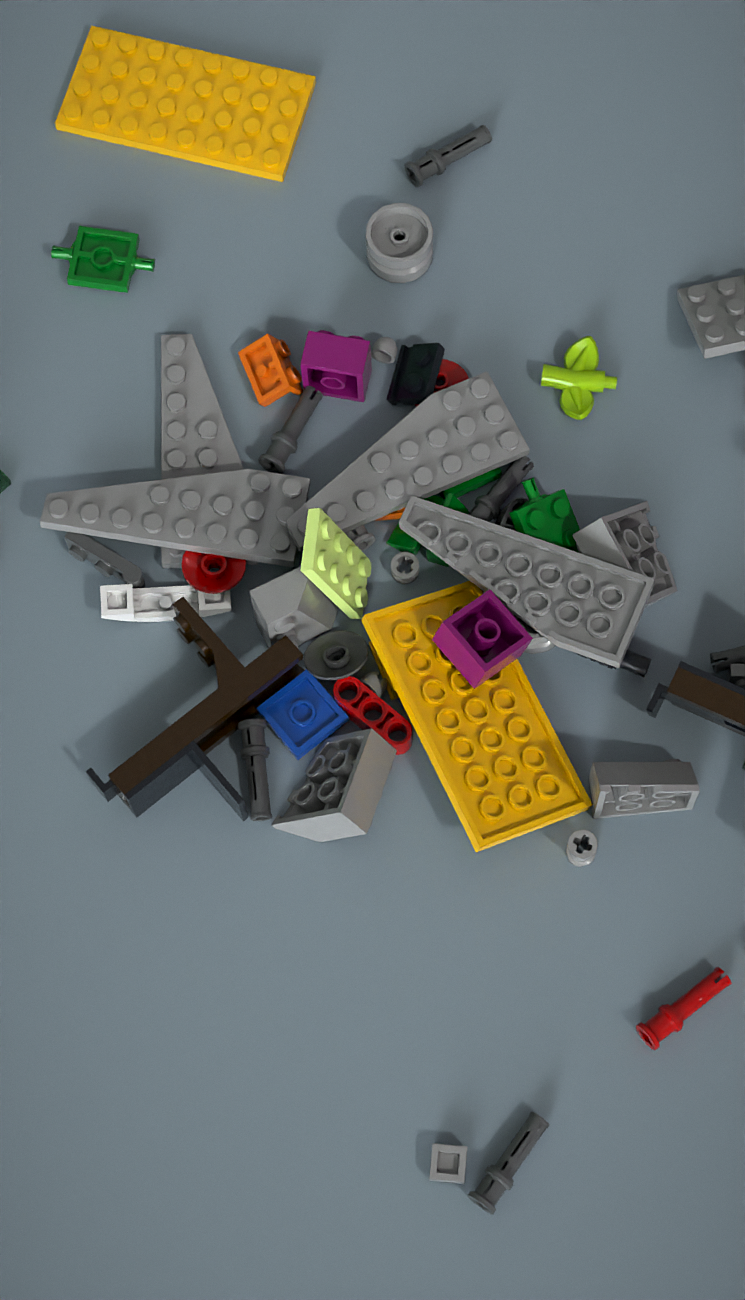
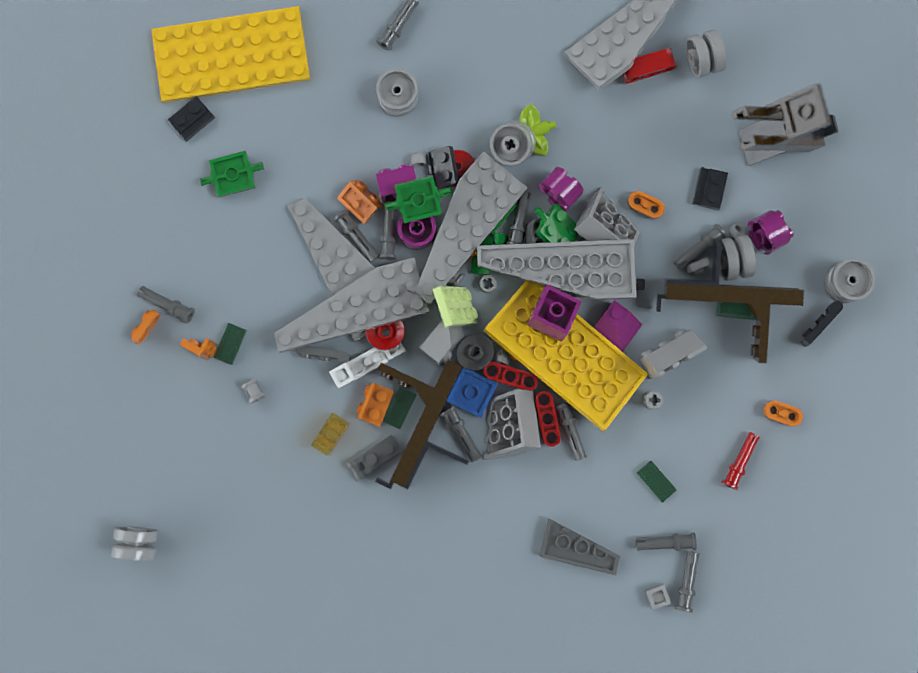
camera: 25 degrees left, 15 degrees up
(57, 680) = (330, 434): none -> clear yellow brick
(85, 164) = (191, 118): none -> black plate
(101, 747) = (374, 457): none -> dark grey plate
(145, 667) = (375, 404): none -> orange bracket
(181, 691) = (399, 408): none -> clear green tile
(238, 403) = (352, 227): none -> dark grey pin
(330, 425) = (419, 240): none -> magenta brick
(344, 1021) = (574, 549): none -> dark grey wing
(353, 389) = (418, 199): none -> green plate
(400, 788) = (553, 426): none -> red beam
(431, 823) = (568, 422): none -> dark grey pin
(516, 1087) = (676, 541): none -> dark grey pin
(530, 980) = (656, 481): none -> clear green tile
(537, 377) = (503, 149): none -> light grey wheel
(578, 711) = (618, 325): none -> magenta slope
(581, 471) = (561, 188): none -> magenta brick
(705, 554) = (645, 205): none -> orange plate

